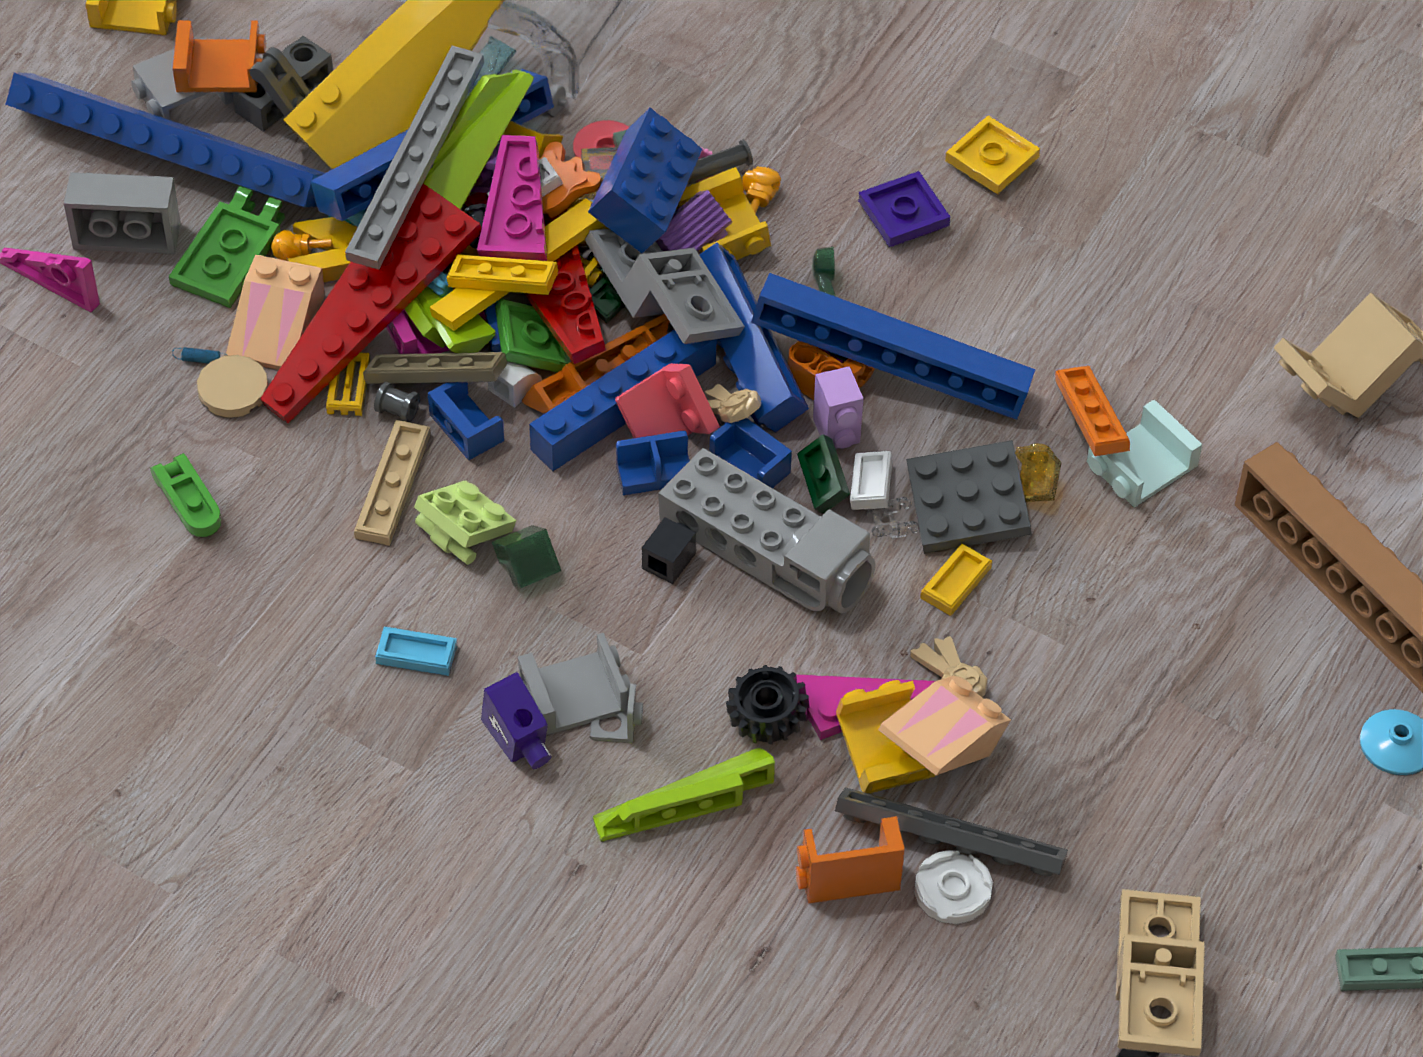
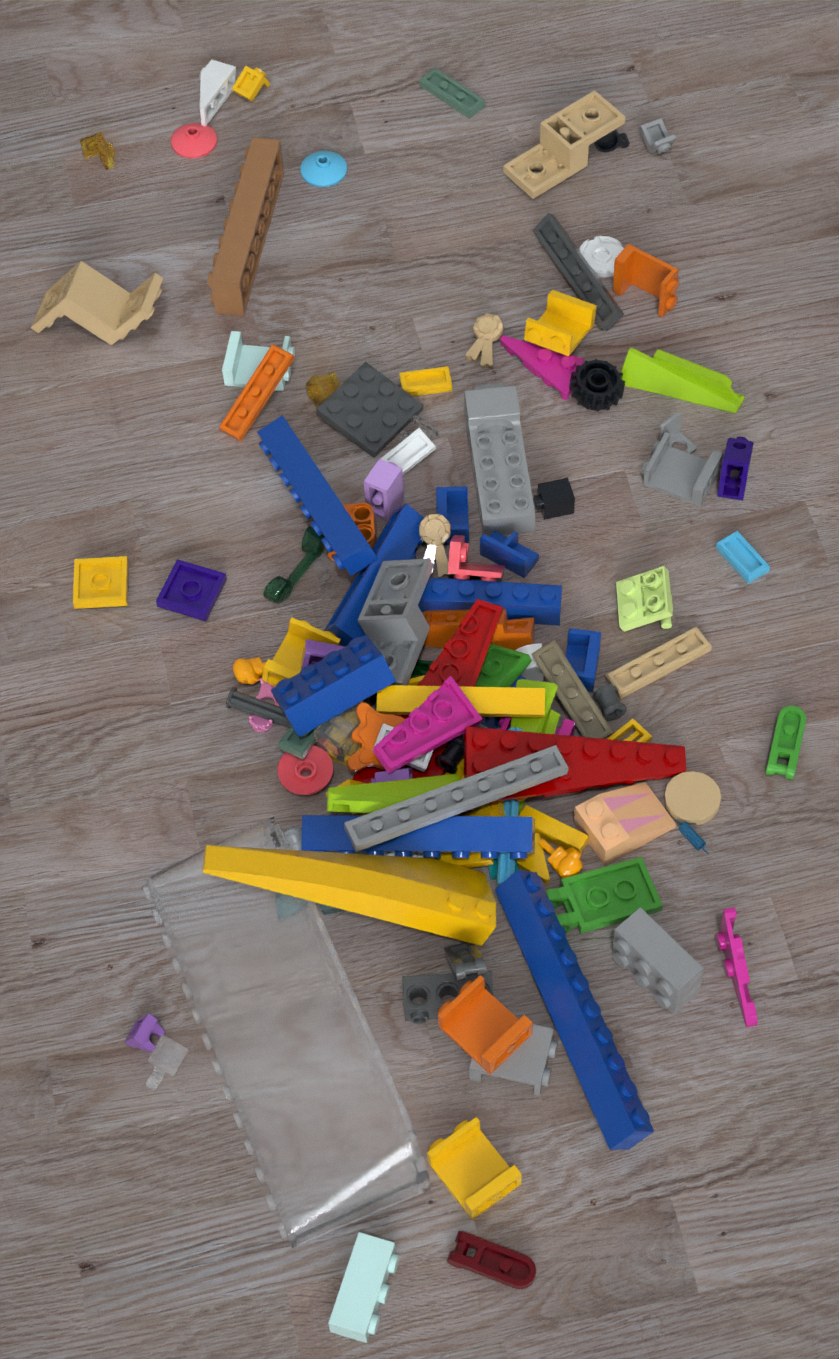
camera: 130 degrees left, 5 degrees up
(502, 274) = (485, 690): yellow tile -> none
(527, 555) = (632, 554): clear green piece -> none
(823, 473) = (427, 476): dark green plate -> none
(947, 726) = (533, 295): light nougat slope -> none

